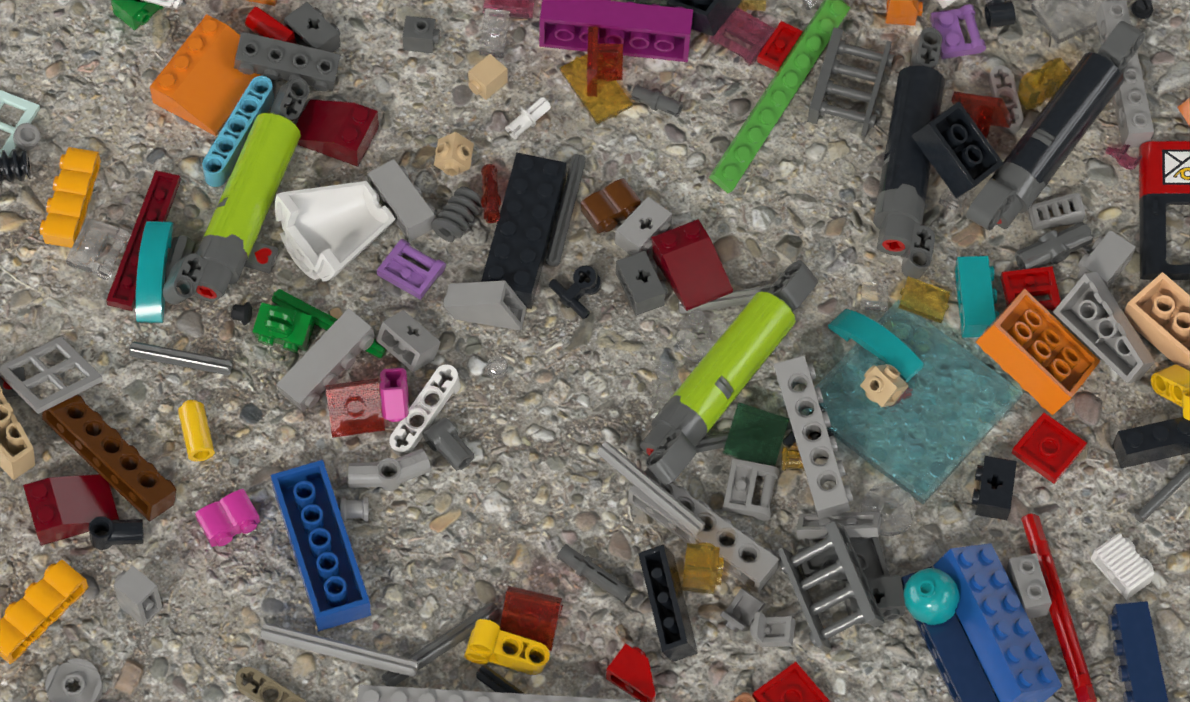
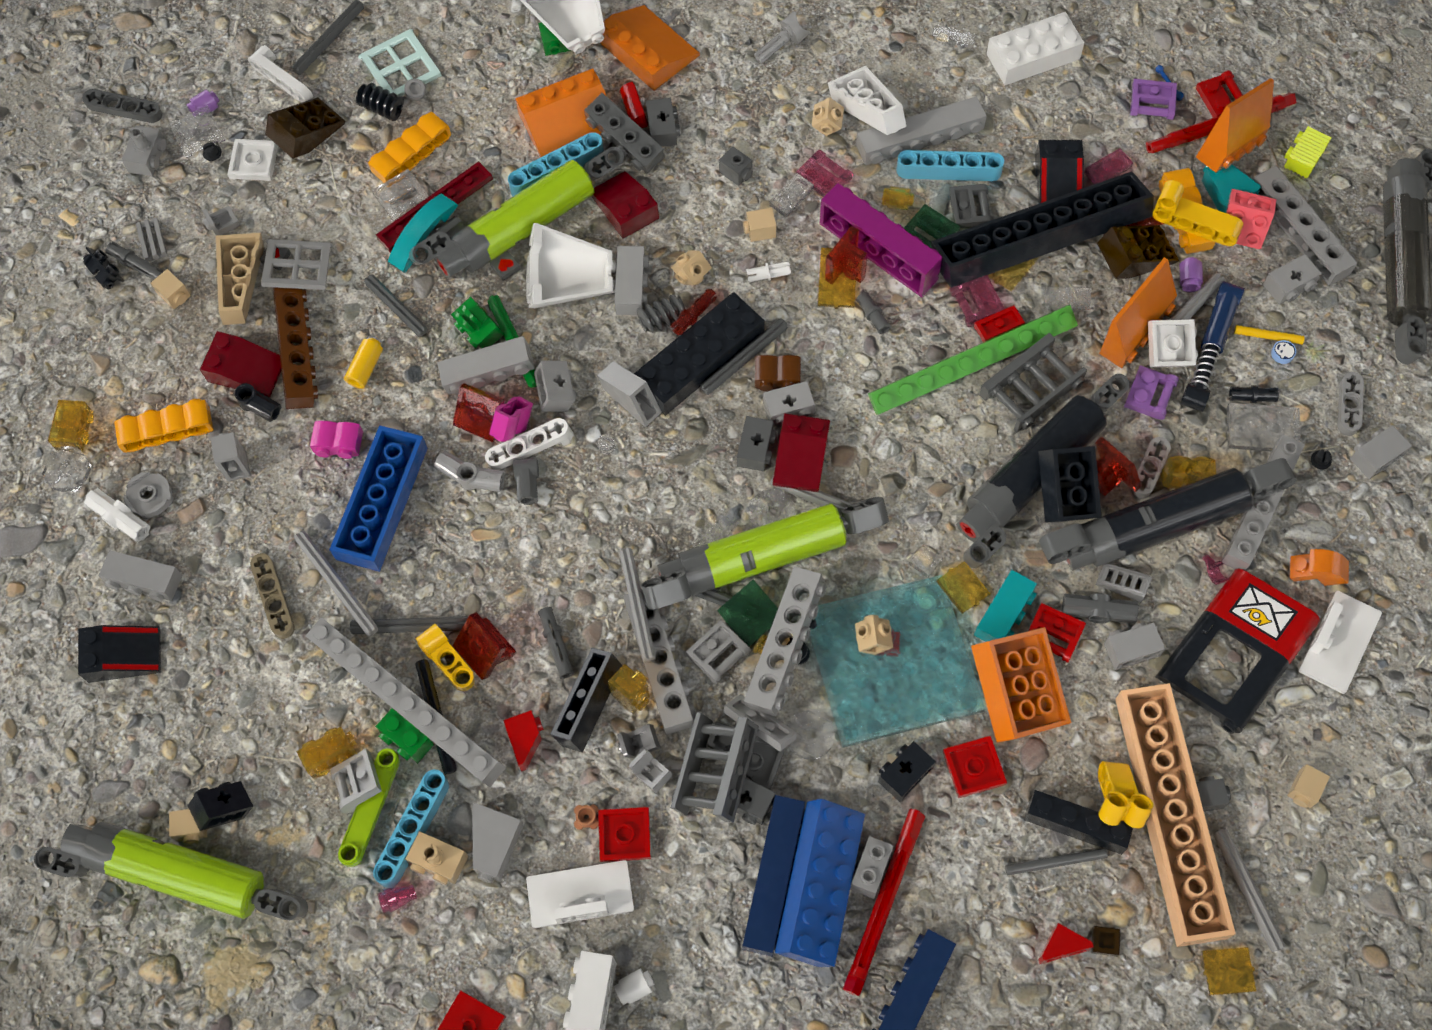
camera: 40 degrees right, 5 degrees up
(242, 313) = (459, 297): black piece -> none
(355, 509) = (425, 486): light grey bush -> none
(408, 275) = (593, 337): medium lavender plate -> none
(578, 289) = (707, 420): black piece -> none
(877, 341) = (898, 600): teal slope -> none
(931, 596) = (782, 826): teal cylinder -> none
(1104, 327) = (1089, 699): light grey wedge -> none
(1123, 565) = (962, 900): white brick -> none

